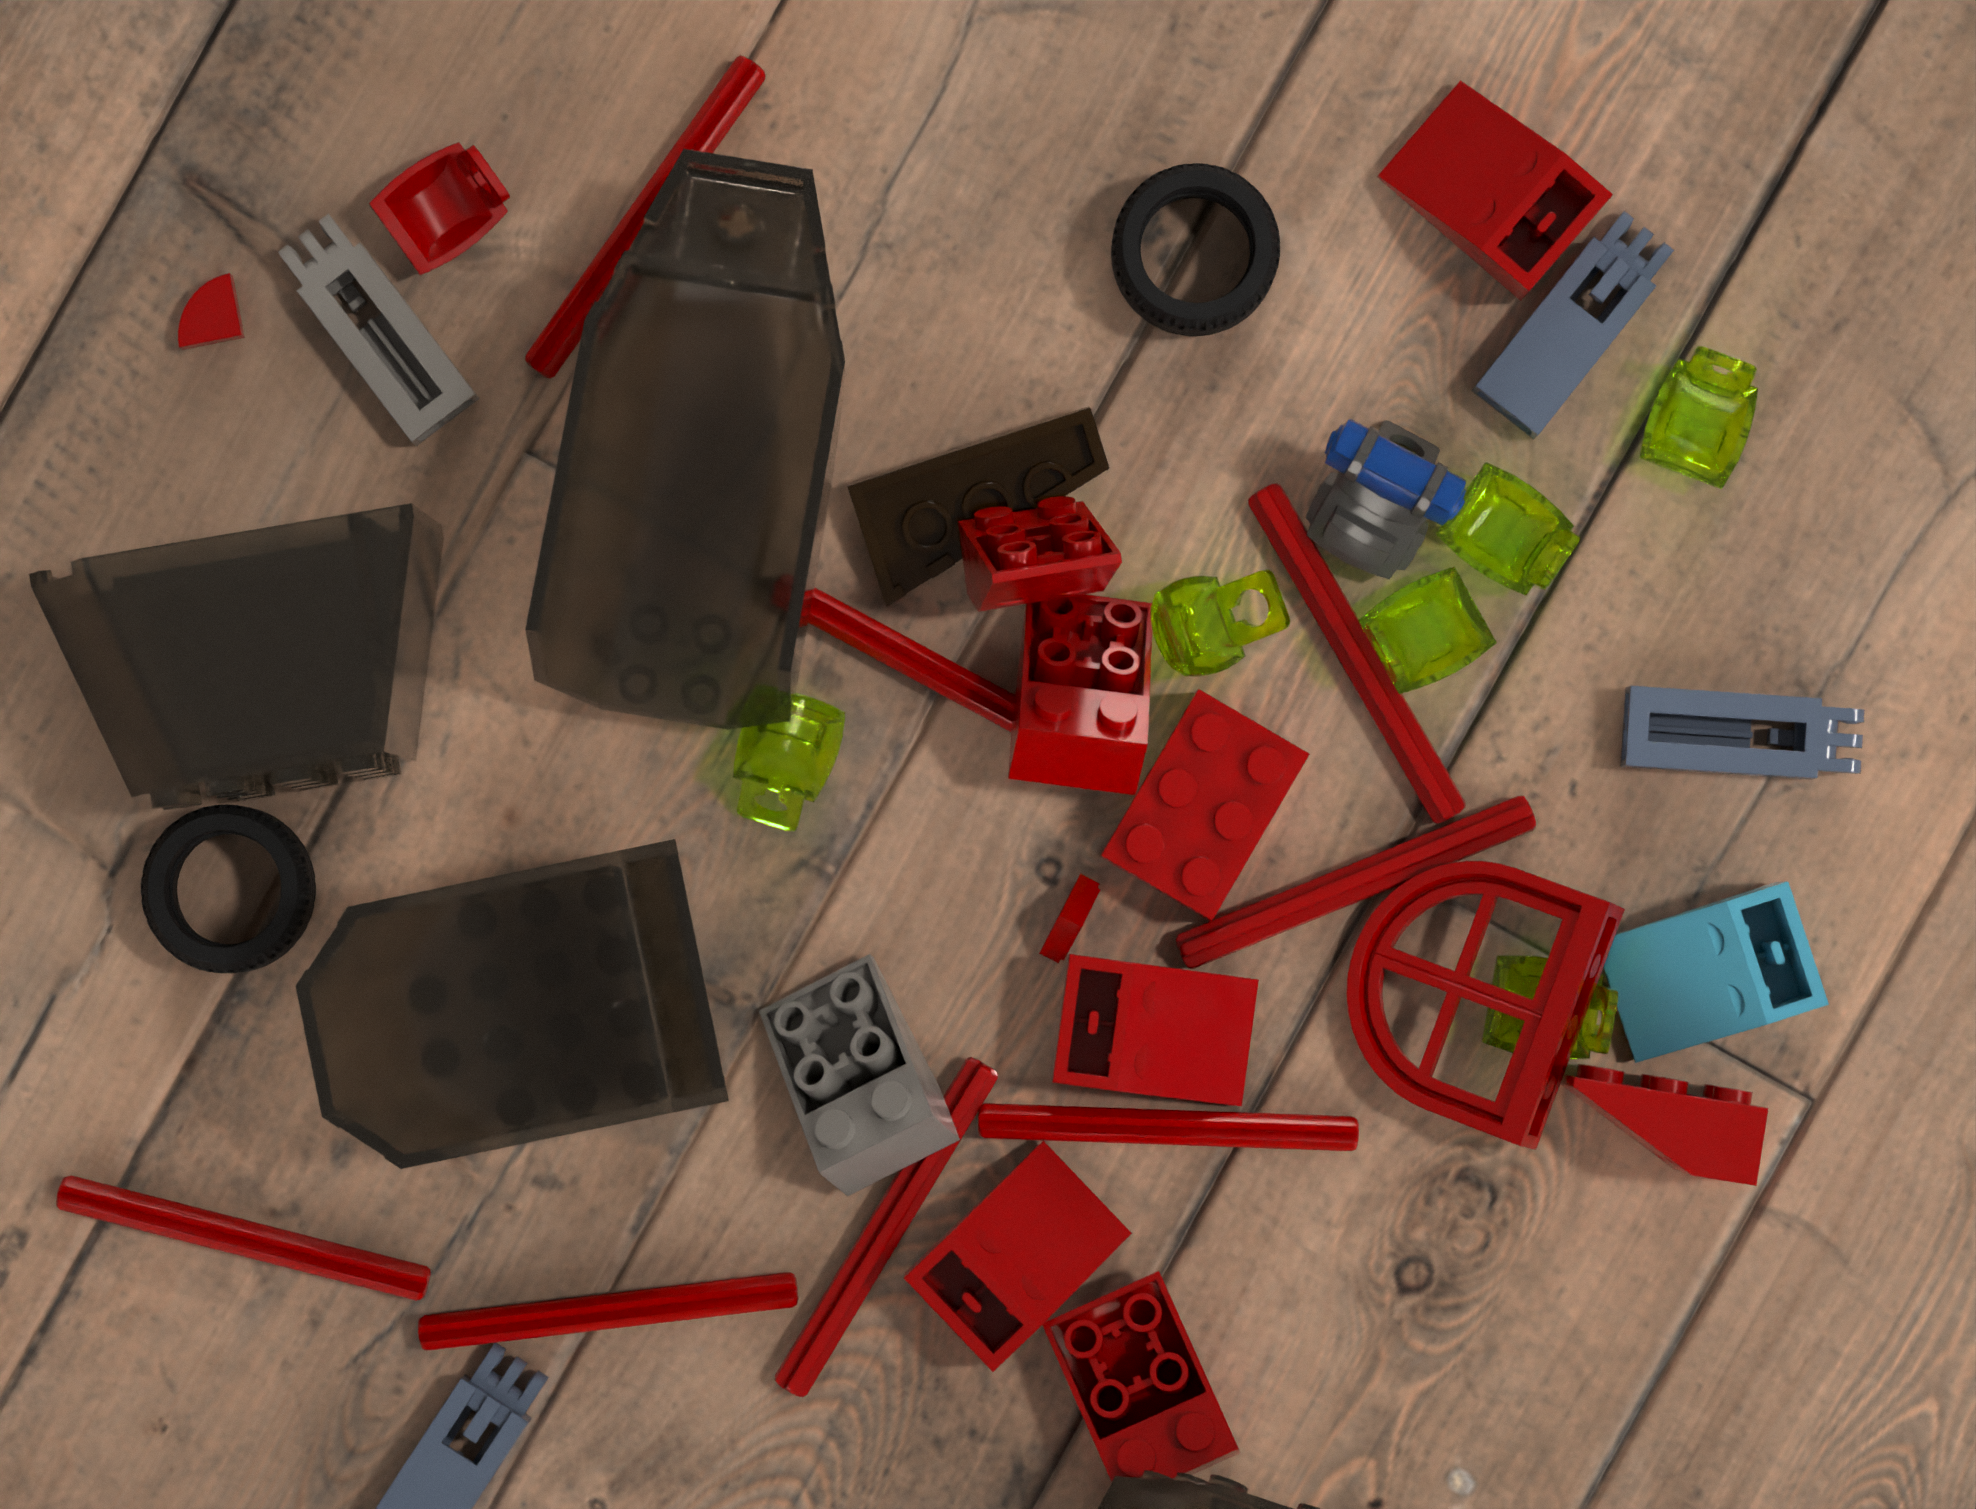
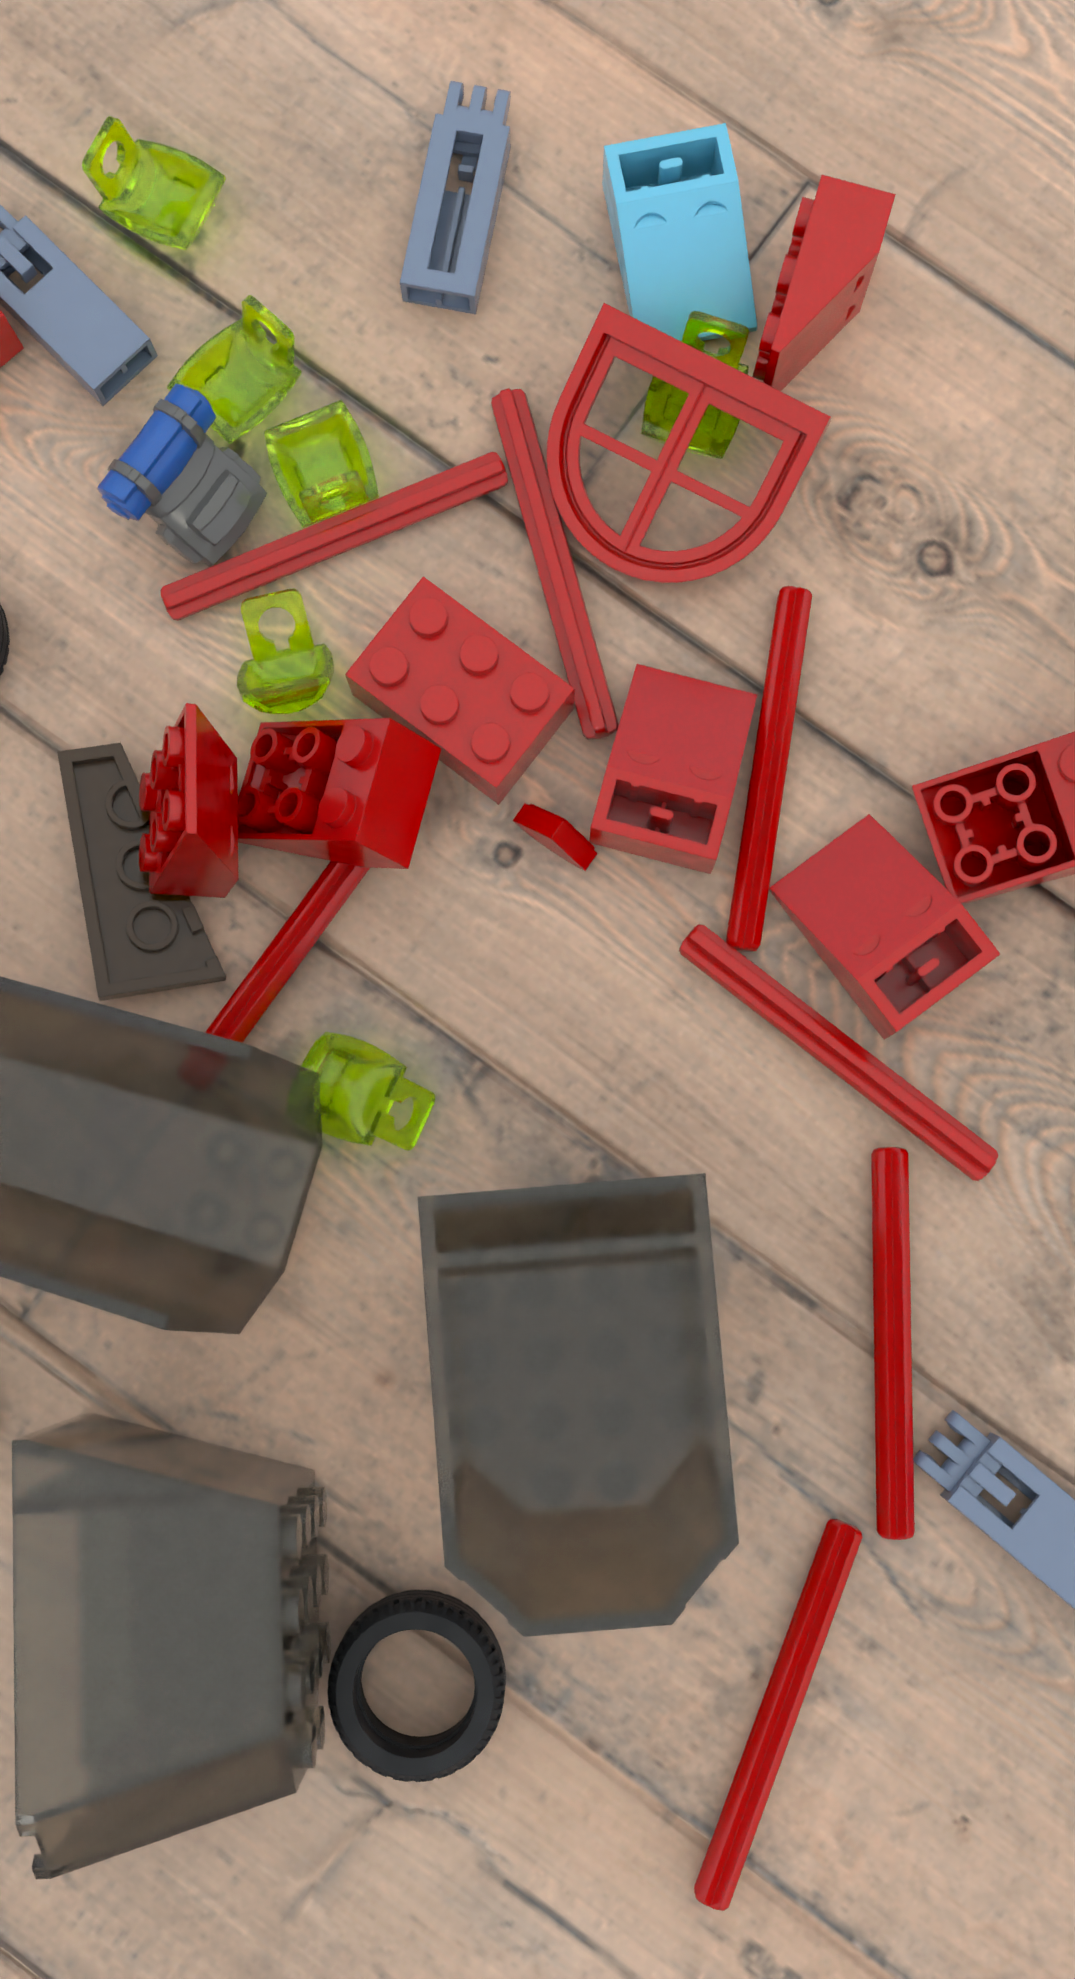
camera: 80 degrees left, 5 degrees down
(857, 1077) = (686, 1060): light grey slope -> none

